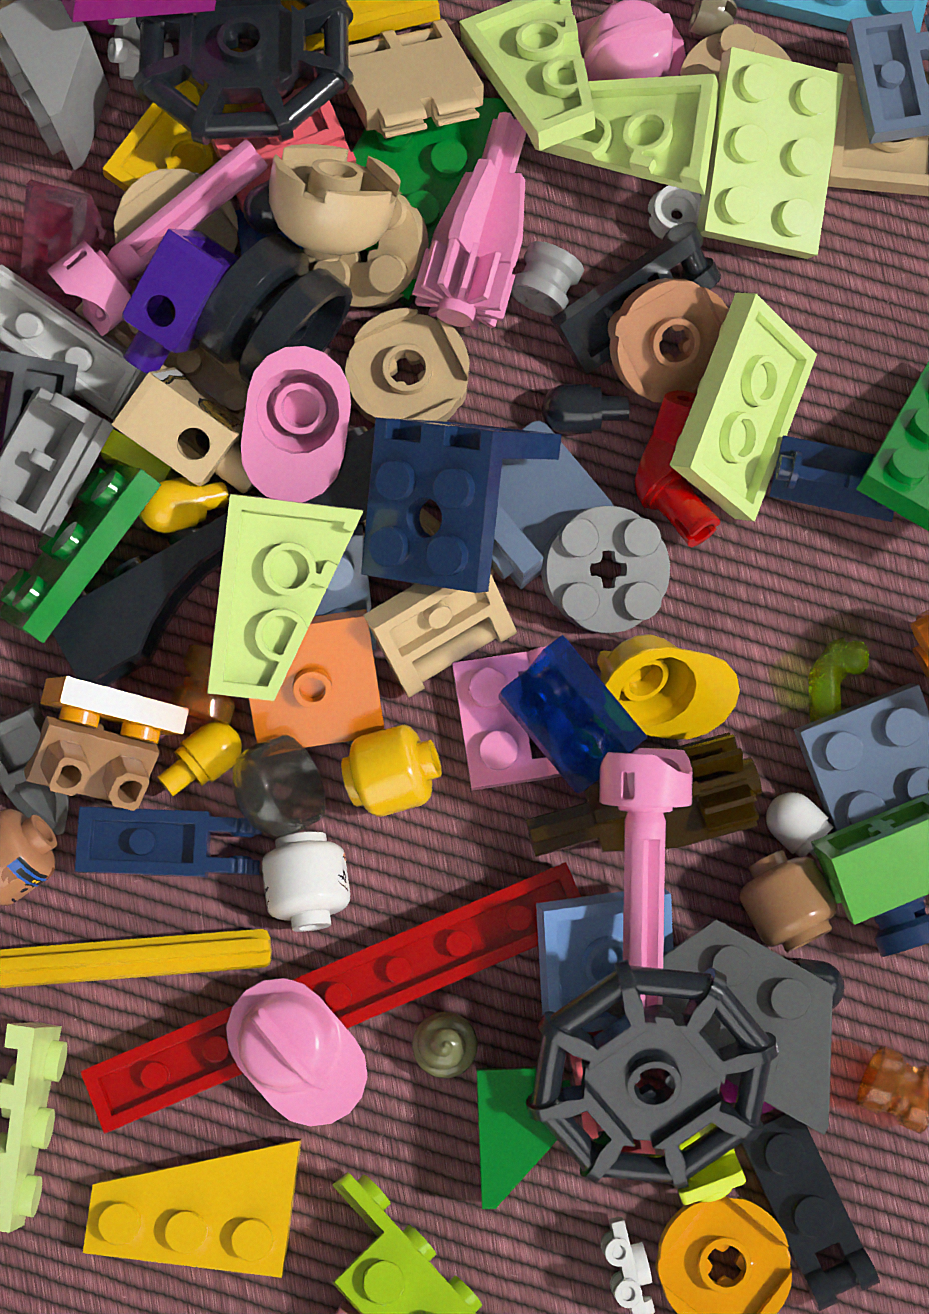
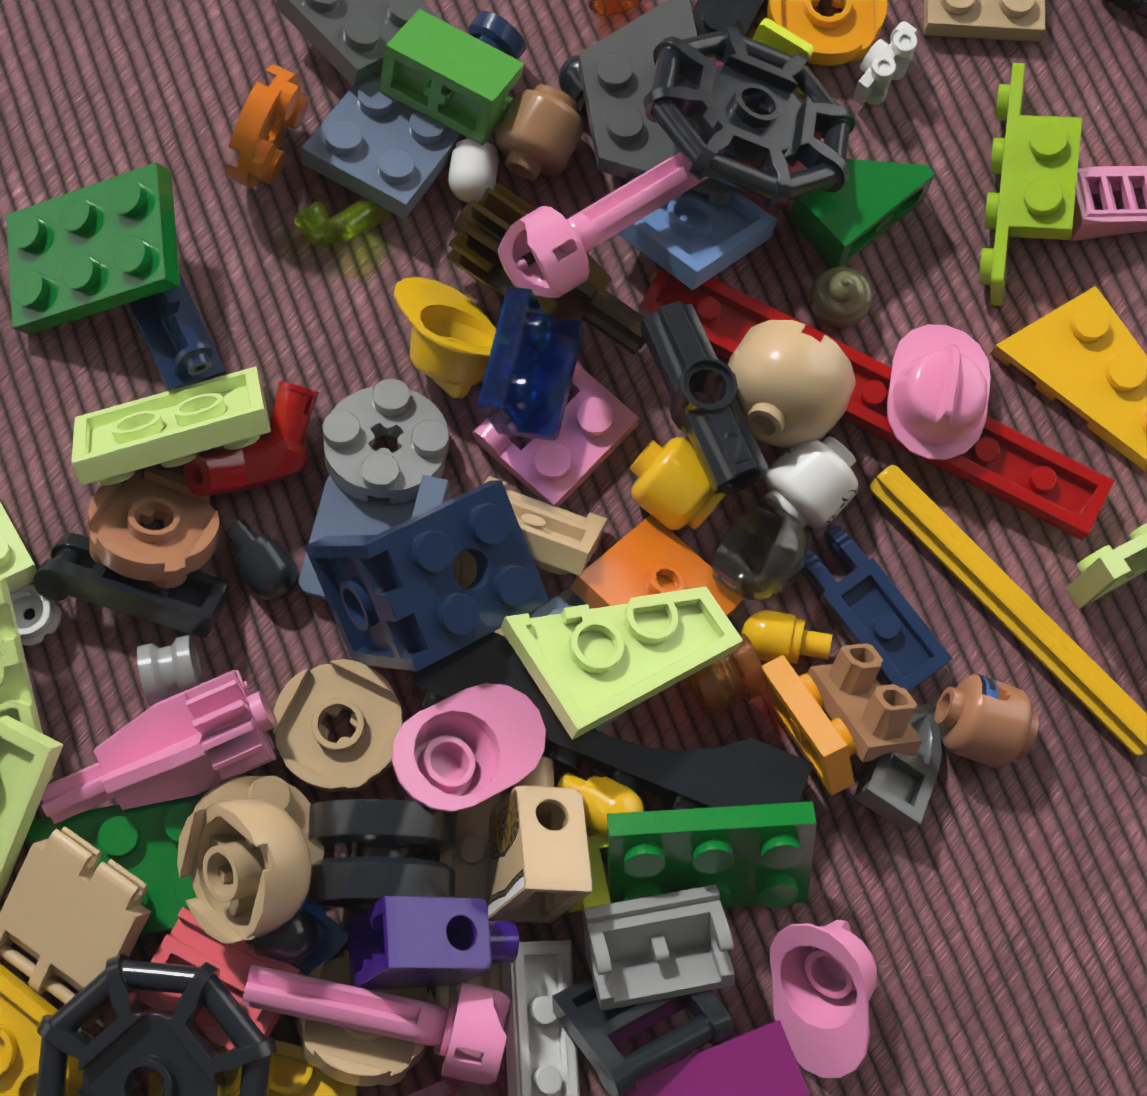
camera: 130 degrees left, 5 degrees down
(390, 909) = (790, 383): none -> tan cylinder
(476, 845) = (716, 429): none -> black piece

